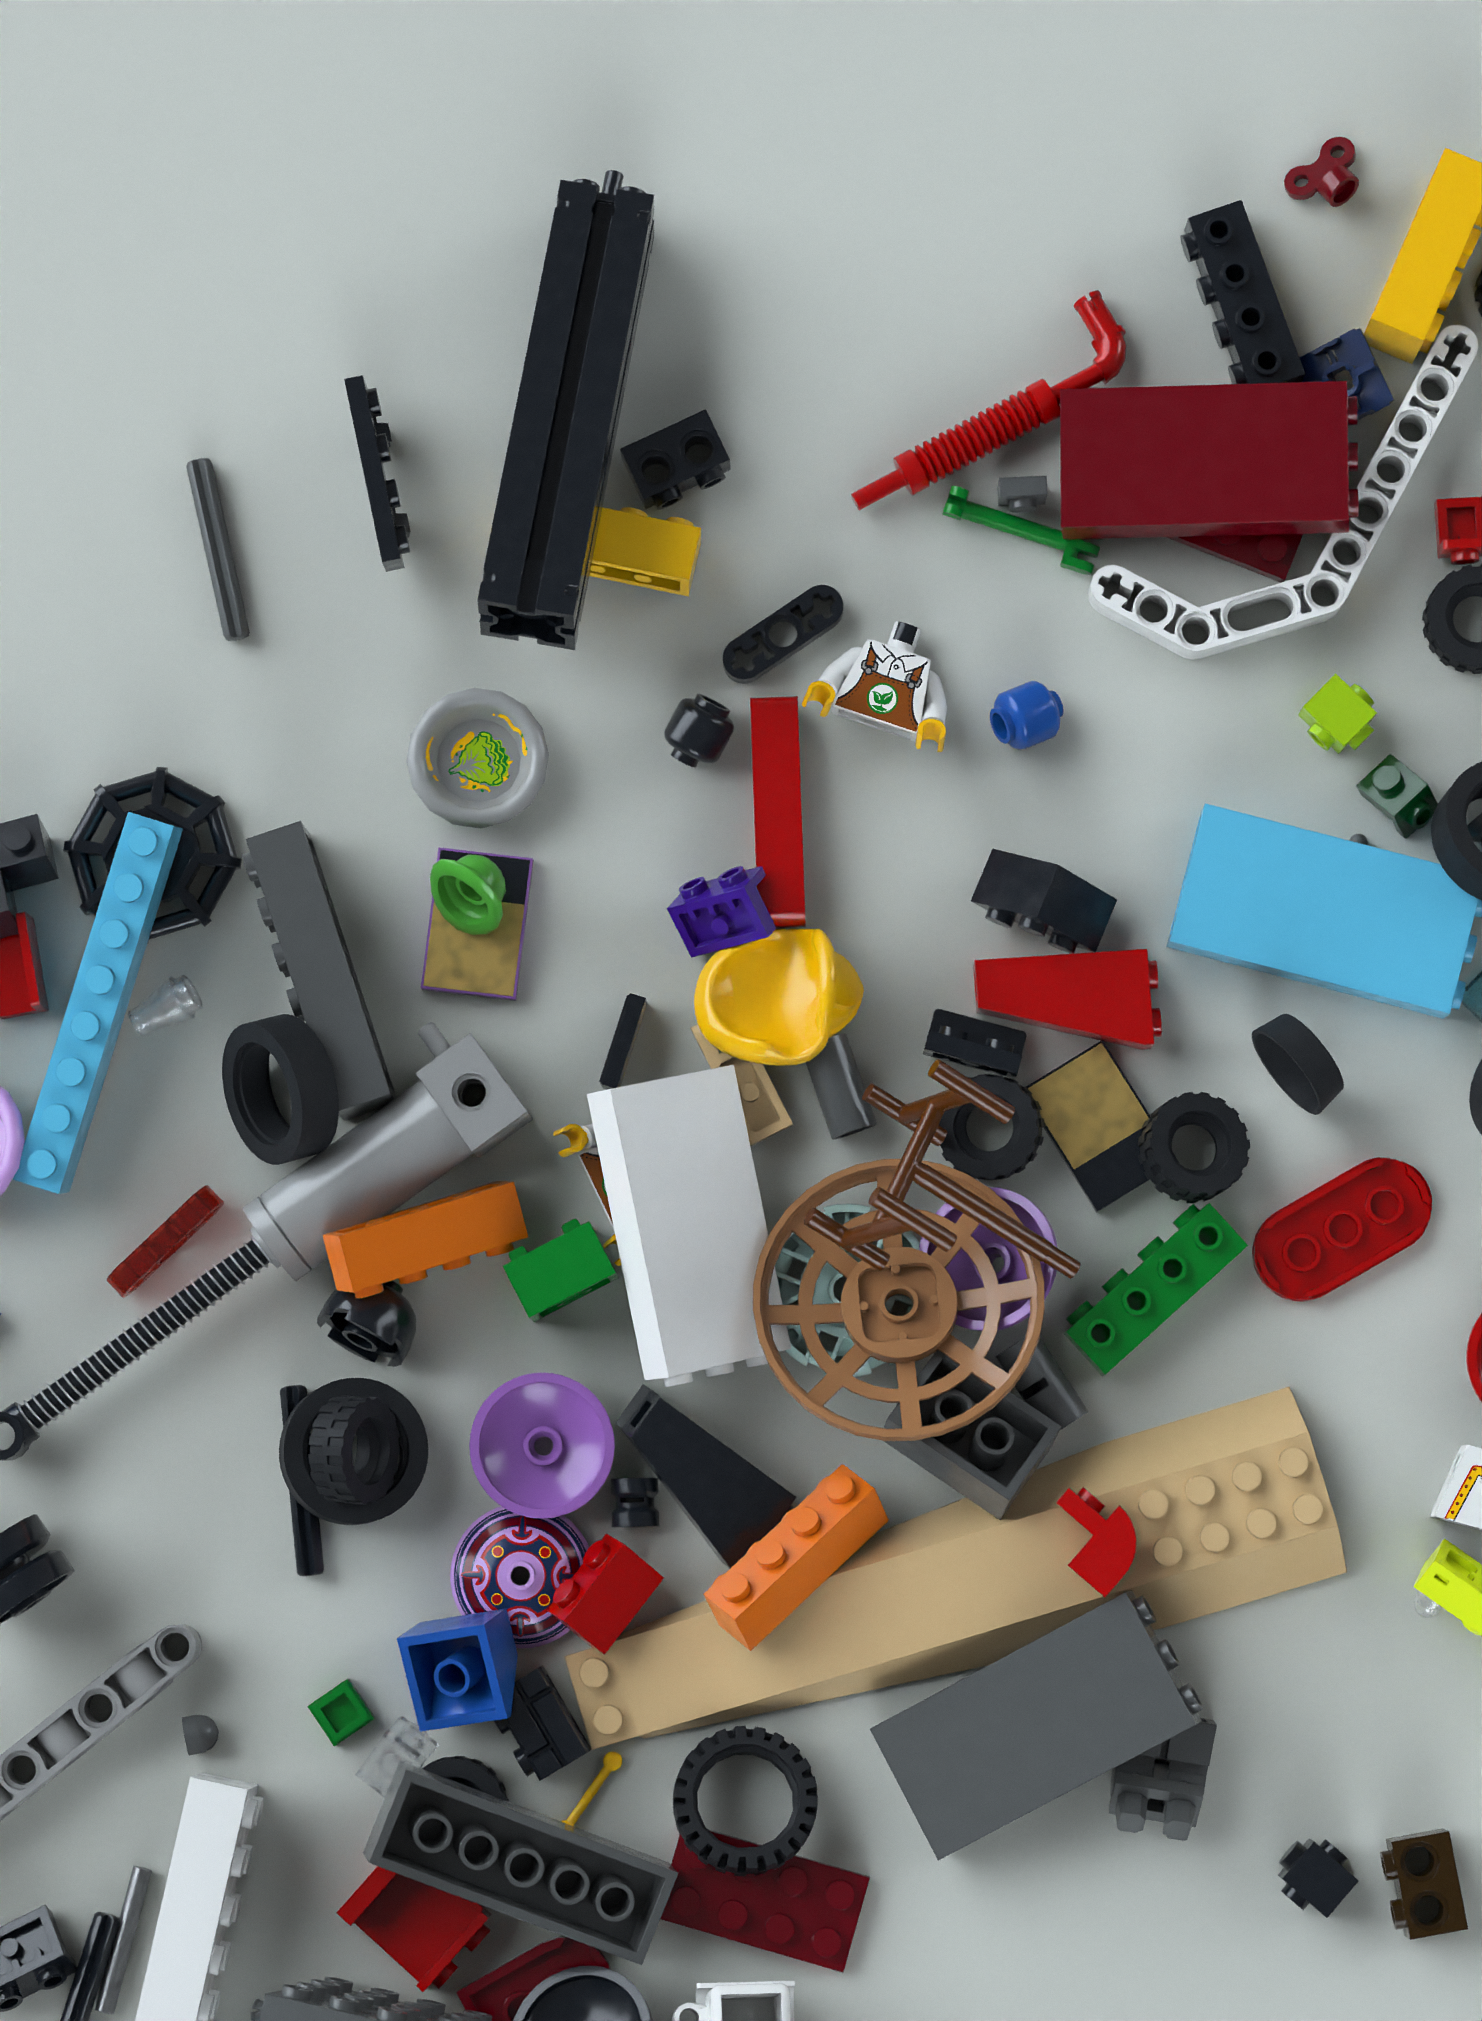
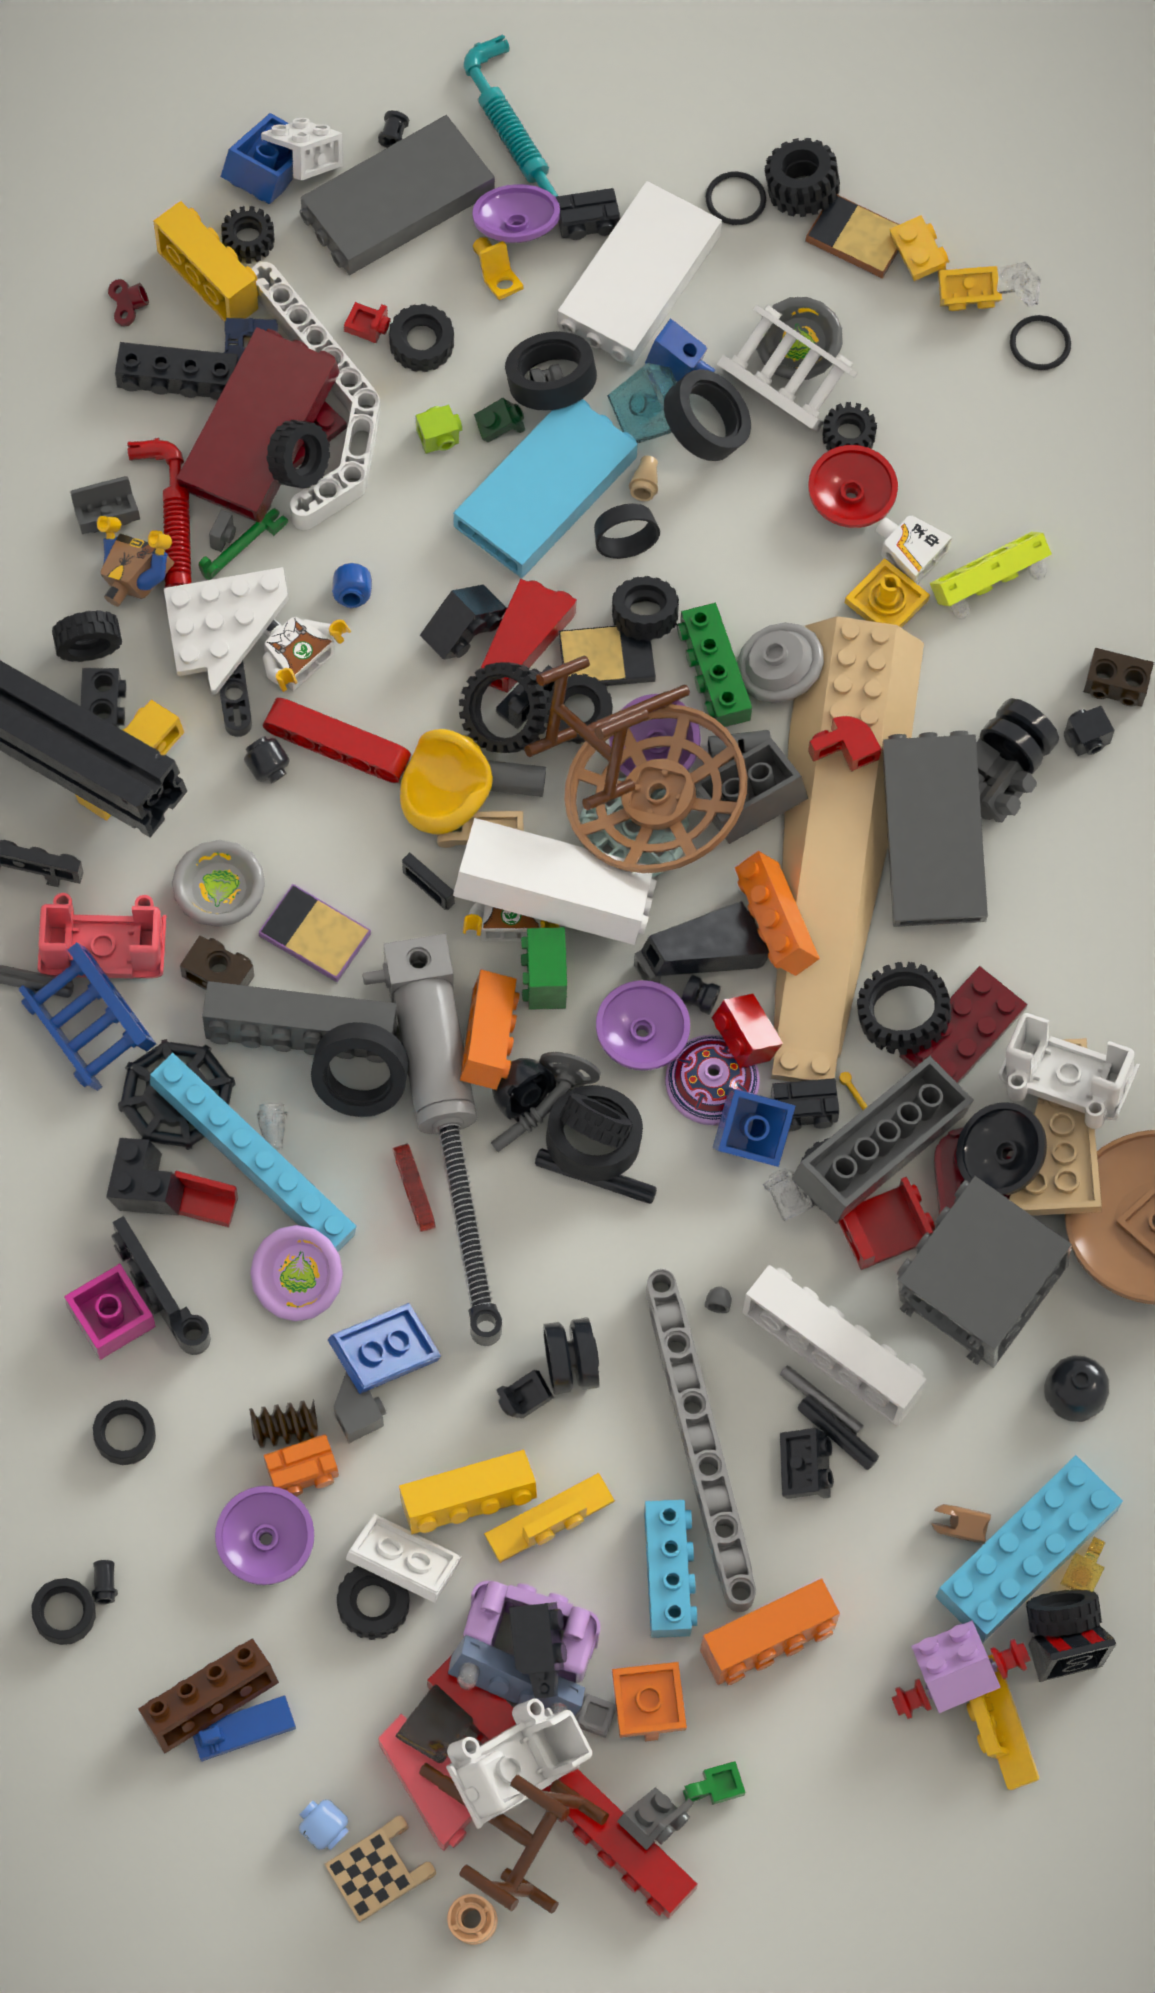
camera: 75 degrees left, 15 degrees down
(230, 706) = (116, 1012): none -> blue fence
(317, 641) = (119, 944): none -> coral container
(334, 1354) = (567, 1074): none -> dark grey dish
(341, 1712) = (744, 1215): green tile -> none
(344, 793) = (210, 952): none -> dark brown brick
(469, 893) = (298, 920): bright green hat -> none
(721, 911) = (380, 790): dark purple bracket -> none
(755, 390) = (86, 636): none -> black tyre
(873, 564) = (222, 620): none -> white wing
(894, 997) = (472, 707): none -> black tyre
(901, 392) = (130, 563): none -> torso
(979, 311) = (107, 499): none -> dark grey bracket
(1174, 513) = (281, 450): none -> black tyre
(1203, 1380) = (780, 662): none -> light grey piece
(1255, 1783) = (1020, 734): none -> black wheel
(1342, 1229) = (729, 559): red tile -> none
(1389, 1487) = (887, 596): none -> yellow plate
(1406, 1049) = (645, 480): none -> tan cone

